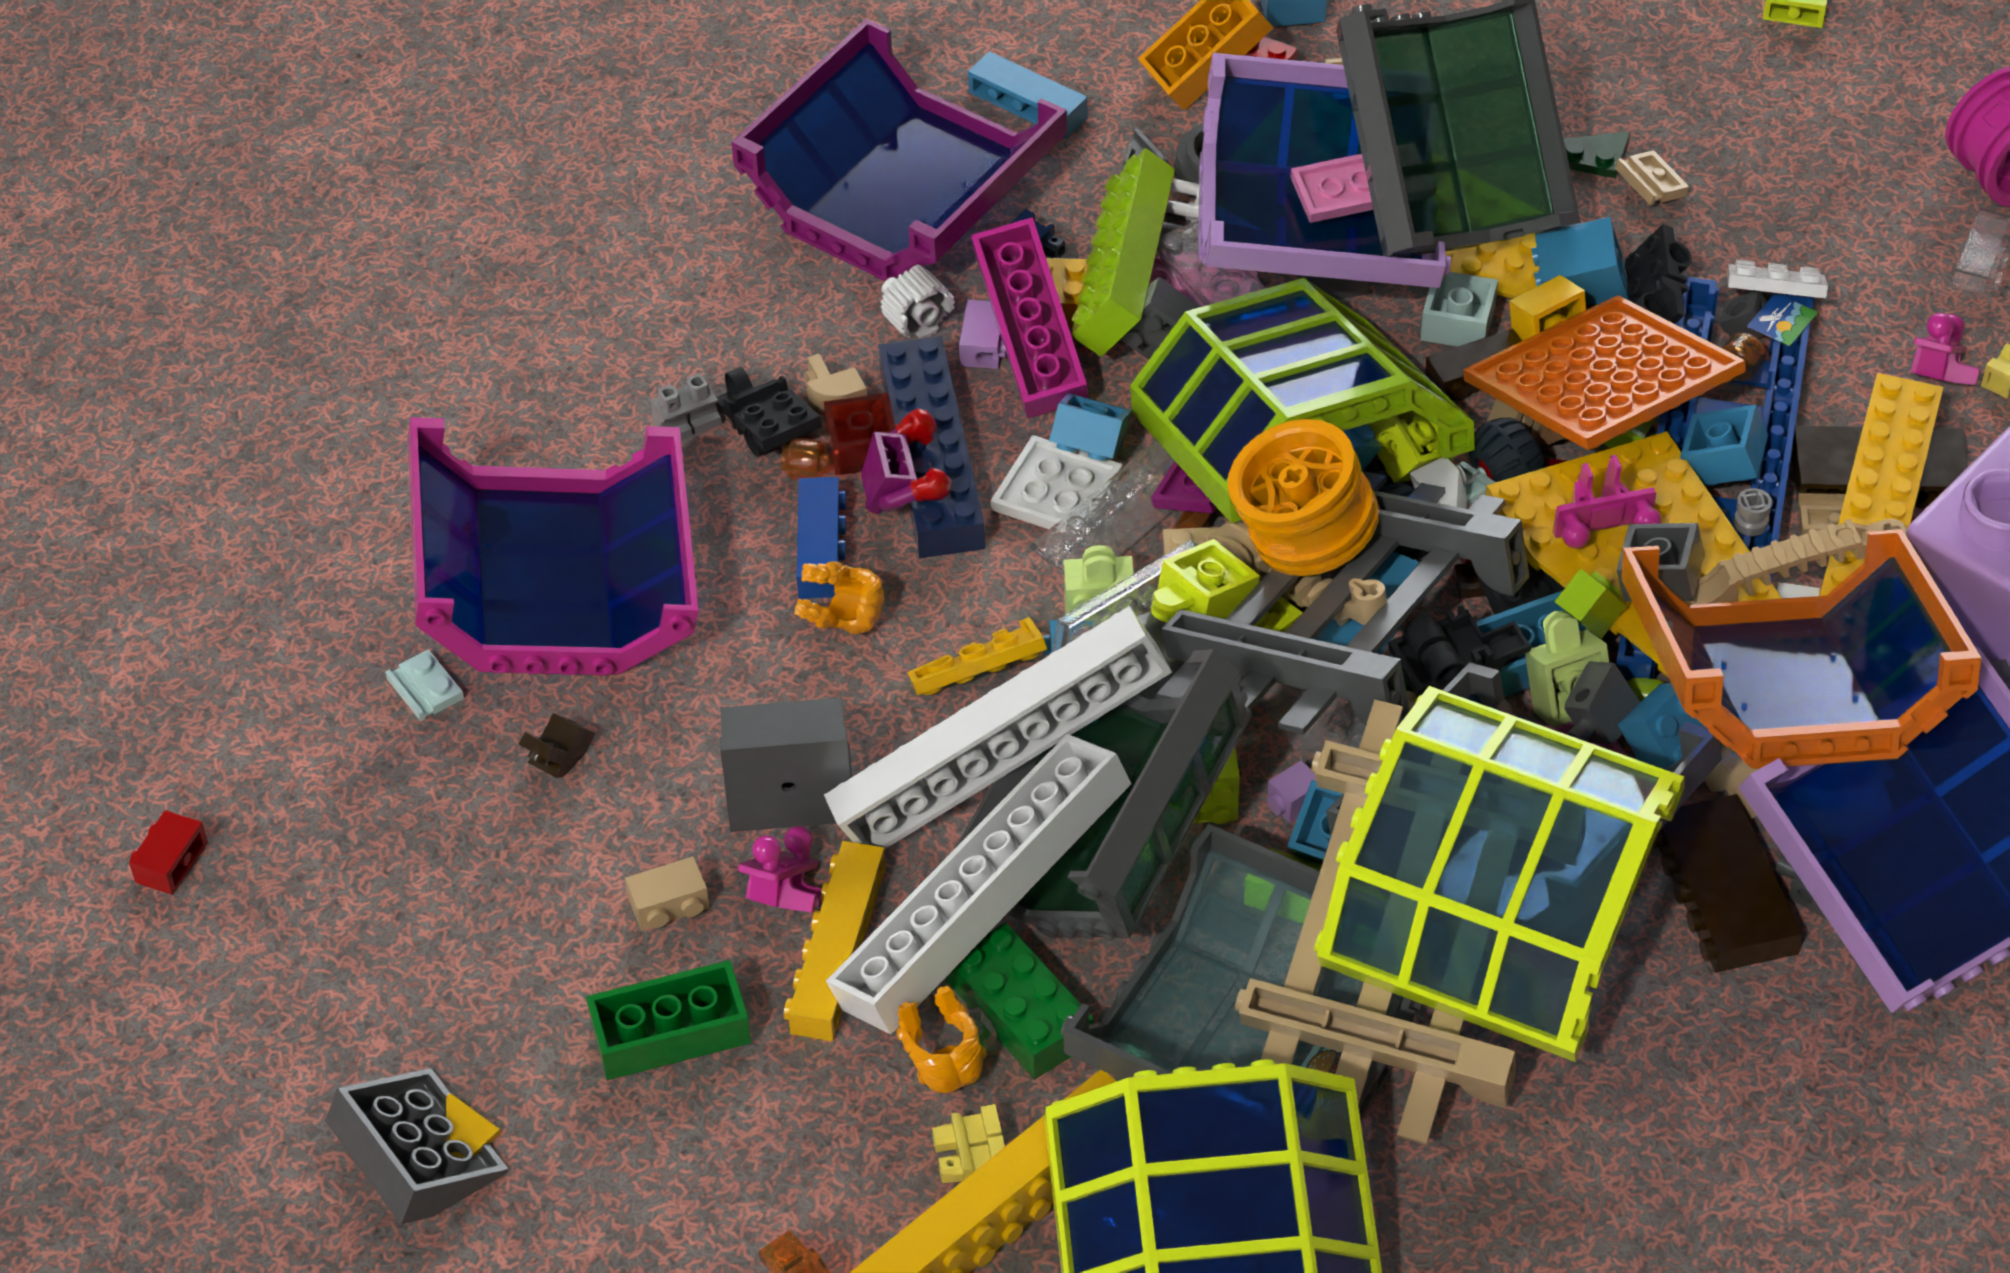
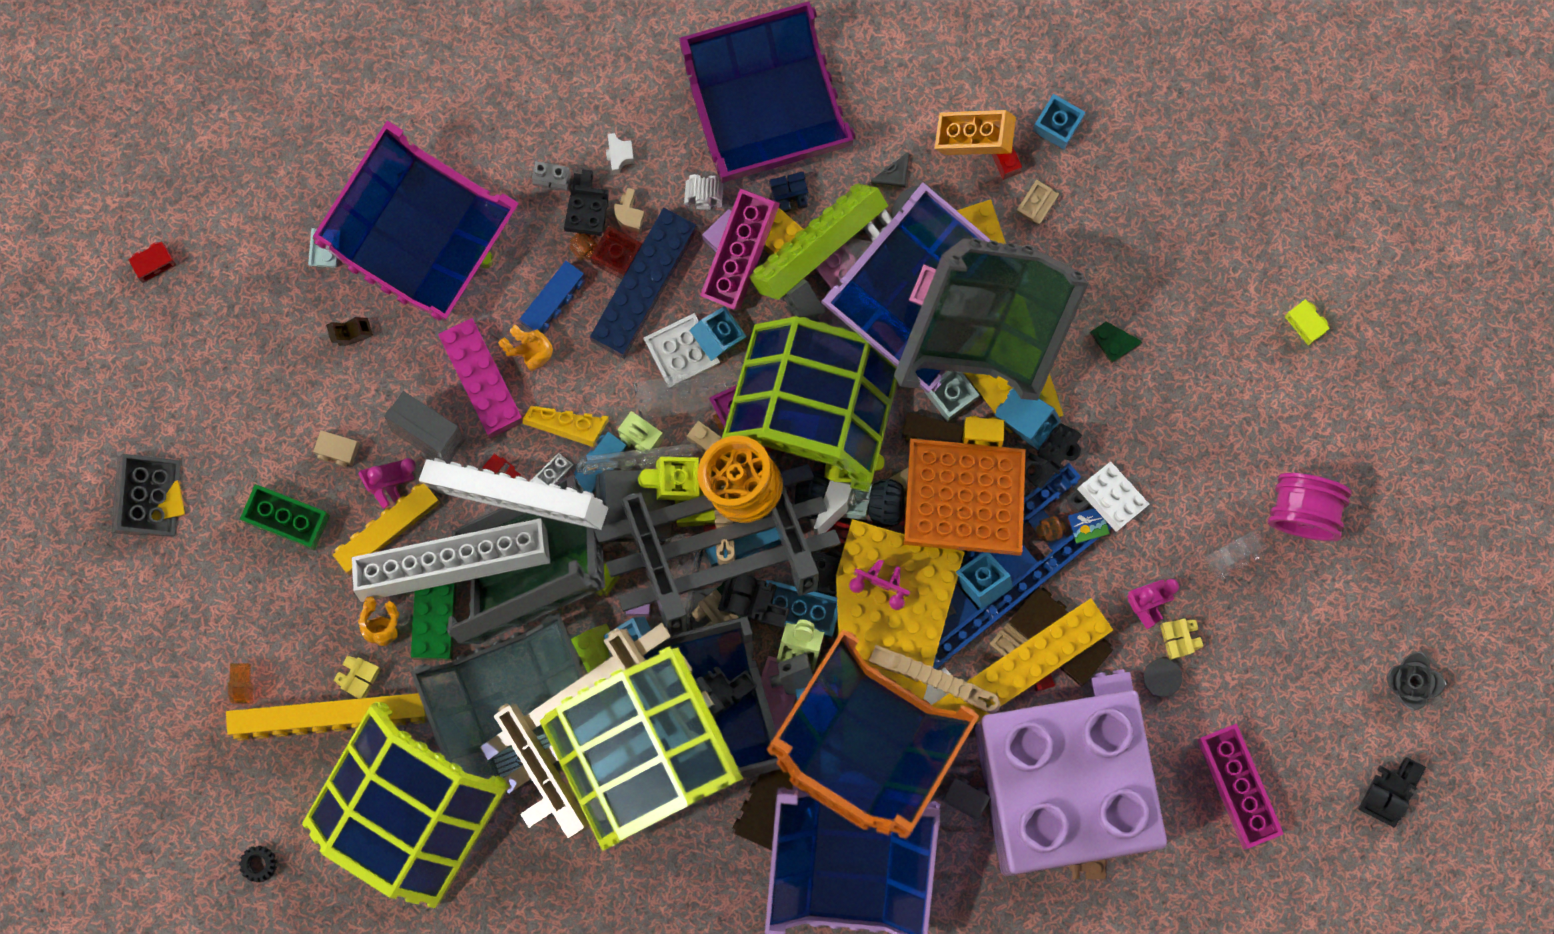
camera: 35 degrees right, 30 degrees up
(755, 338) = (619, 153): none -> white brick
(778, 667) = (480, 378): none -> dark pink brick
(889, 469) = (603, 293): magenta torso -> none
(1021, 89) = (873, 90): dark azure brick -> none
(1591, 602) = (826, 627): lime brick -> none
(1652, 177) = (1124, 380): tan plate -> none
(1679, 554) = (876, 632): dark grey brick -> none
(1752, 512) = (957, 630): light grey wheel -> none

